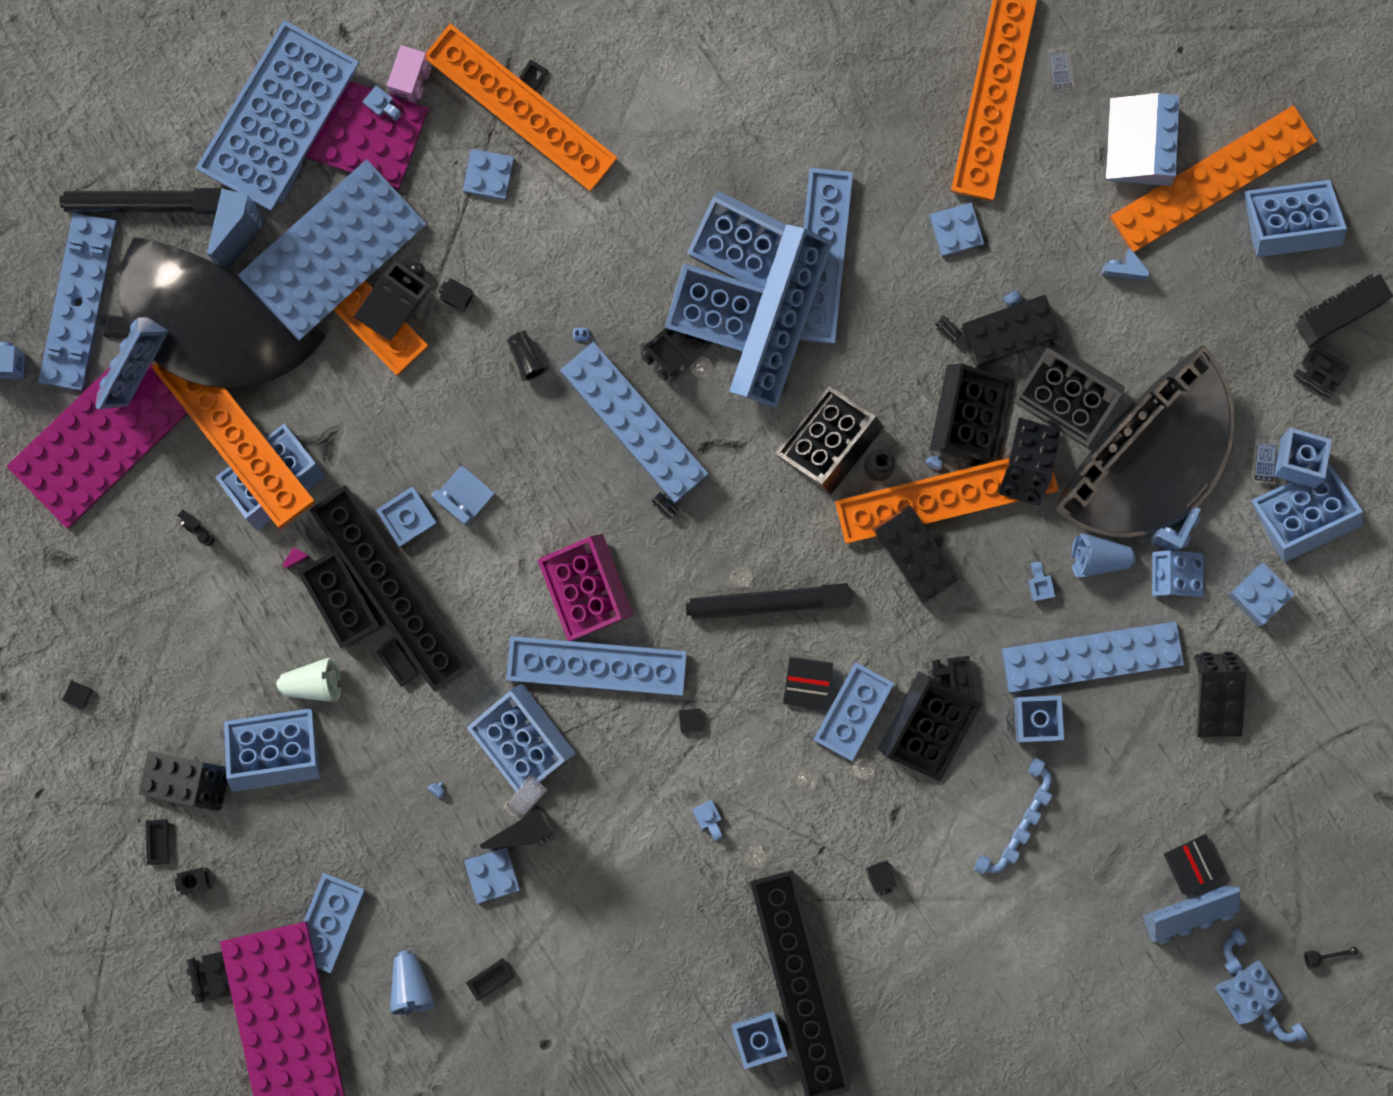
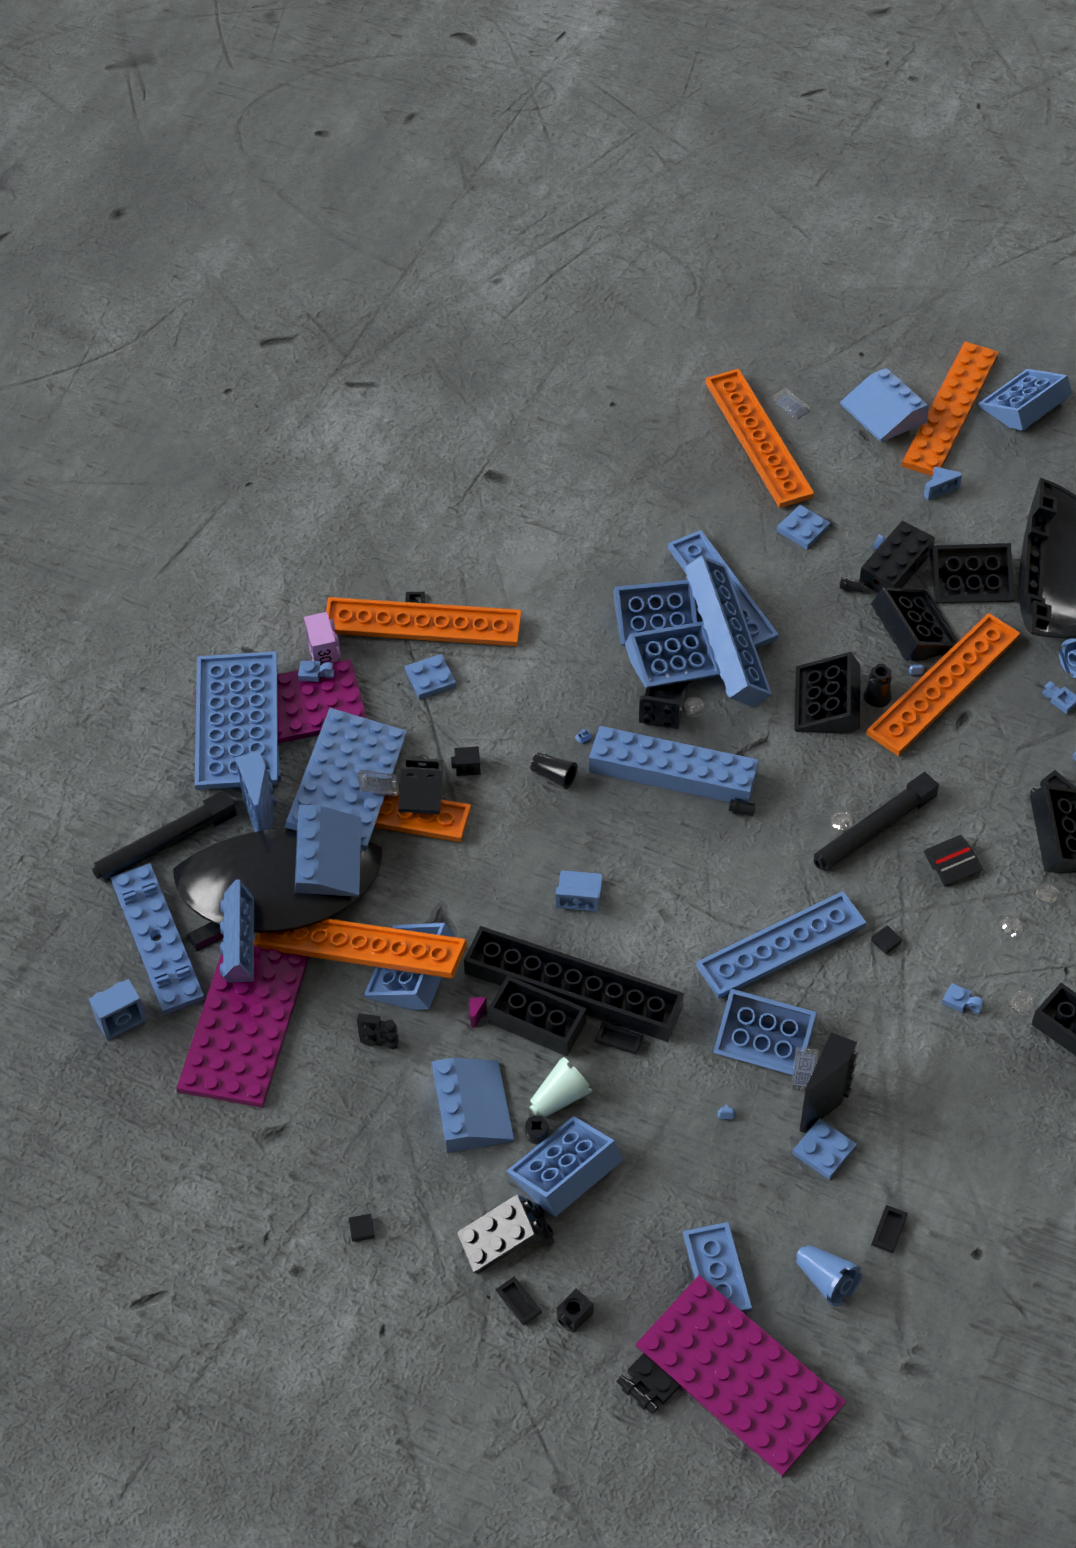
camera: 30 degrees left, 30 degrees down
(235, 643) = (471, 1103): none -> medium blue slope
(255, 330) = (327, 852): none -> medium blue slope
(275, 702) = (536, 1135): none -> black wheel
(352, 277) = (378, 782): none -> clear tile
(406, 517) = (545, 928): medium blue plate -> none
(585, 587) = (726, 895): magenta slope -> none
(853, 711) = (1004, 858): medium blue plate -> none
(915, 553) = (956, 725): black brick -> none
(1030, 462) = (990, 625): black bracket -> none

